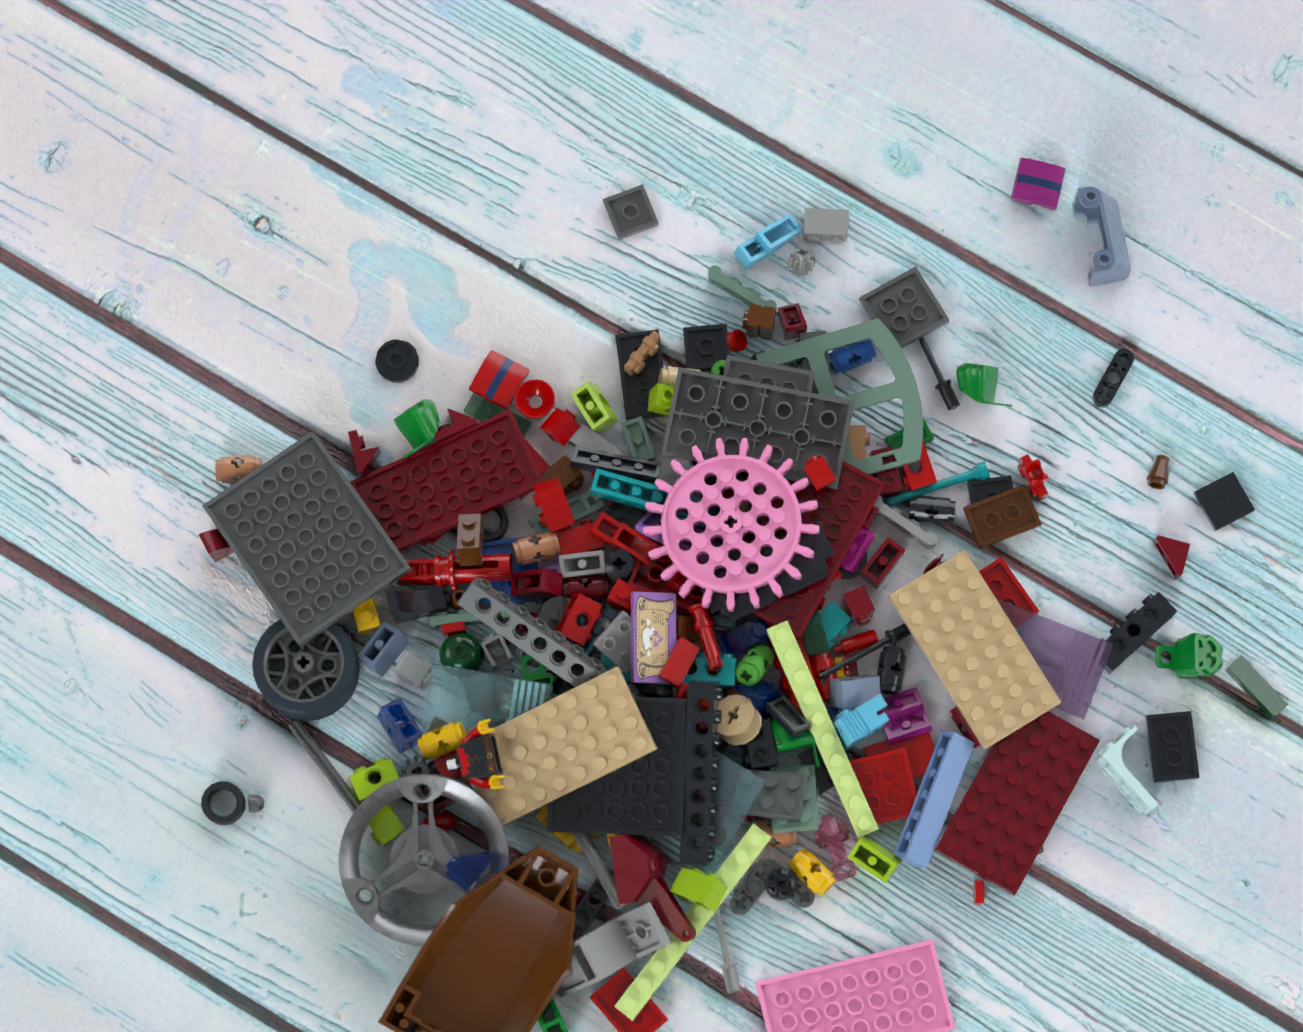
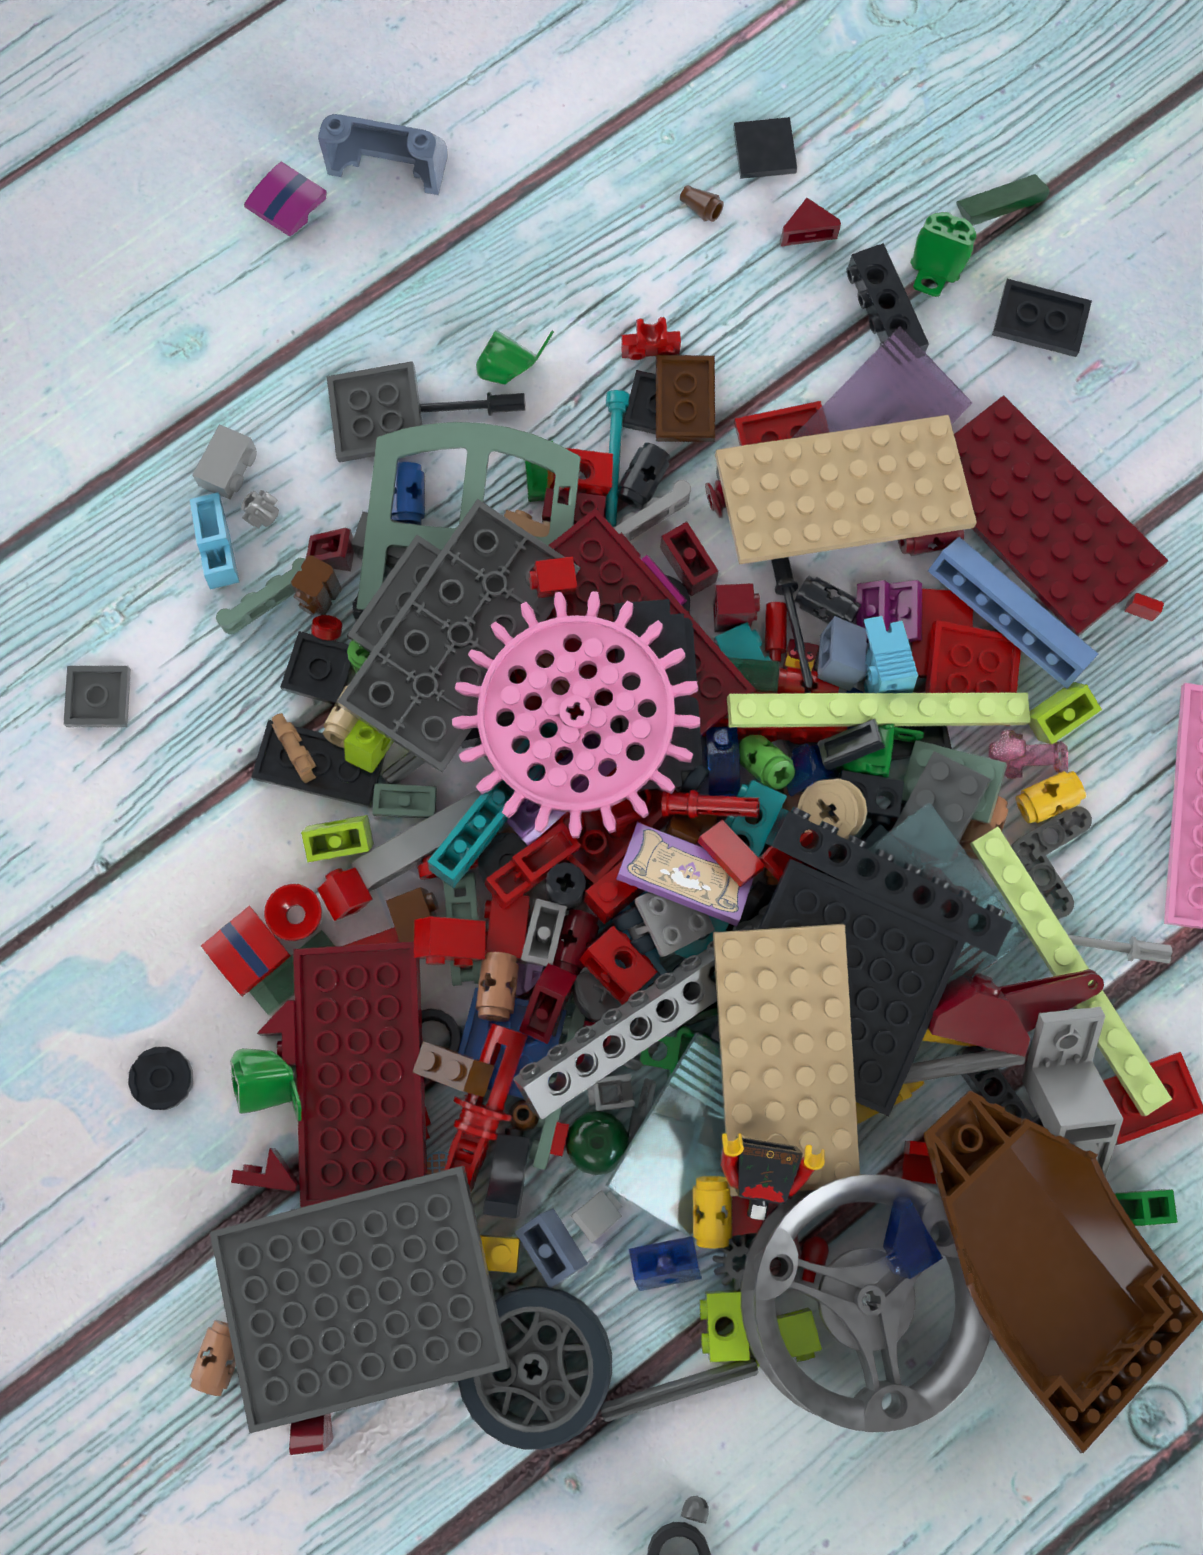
camera: 75 degrees left, 0 degrees up
(622, 465) = (427, 838): black plate -> none
(698, 888) = (1037, 944): lime brick -> none
(780, 874) = (1059, 829): black wheel -> none
(1115, 361) = (566, 222): black beam -> none
(1127, 784) = (1044, 385): light aqua bracket -> none

